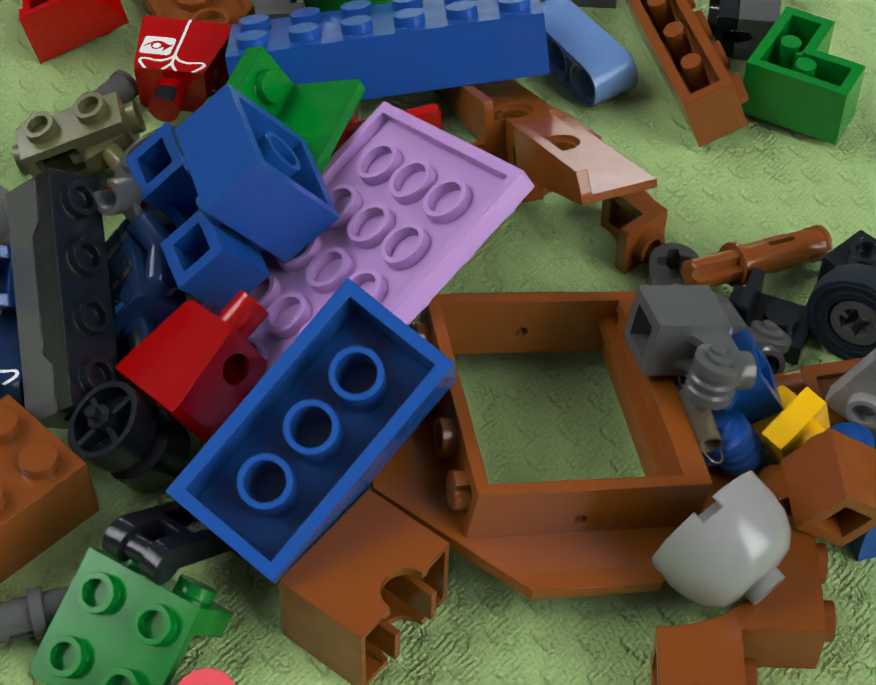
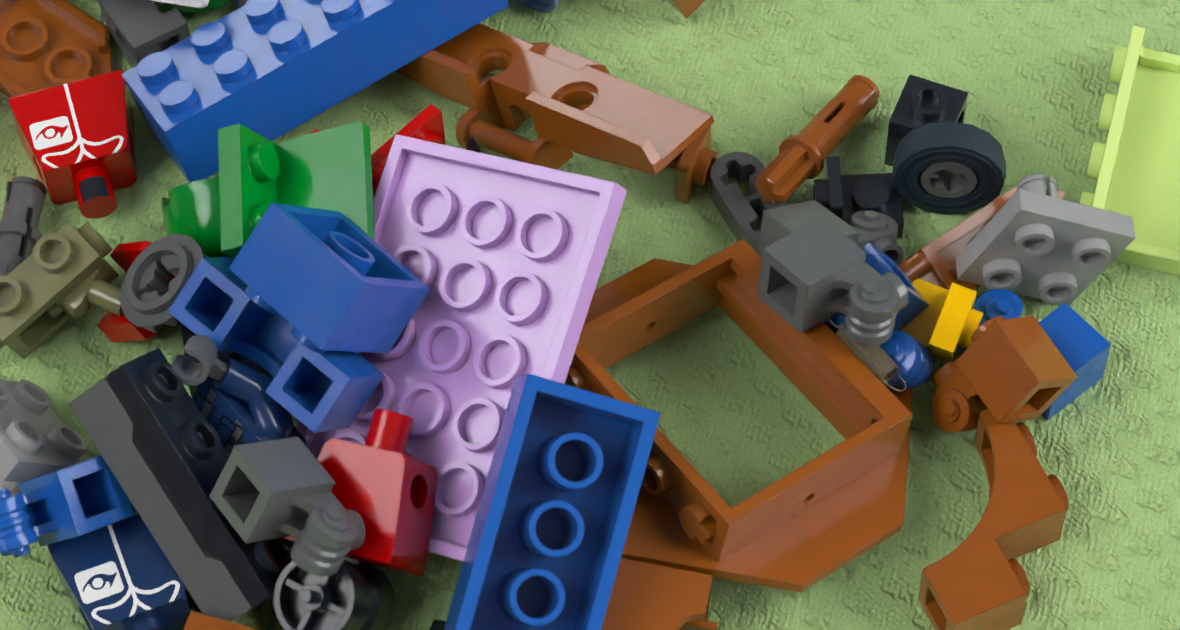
camera: 25 degrees left, 10 degrees up
(121, 322) = (284, 492): none -> dark grey brick
(728, 547) = (955, 470): light grey cylinder -> none

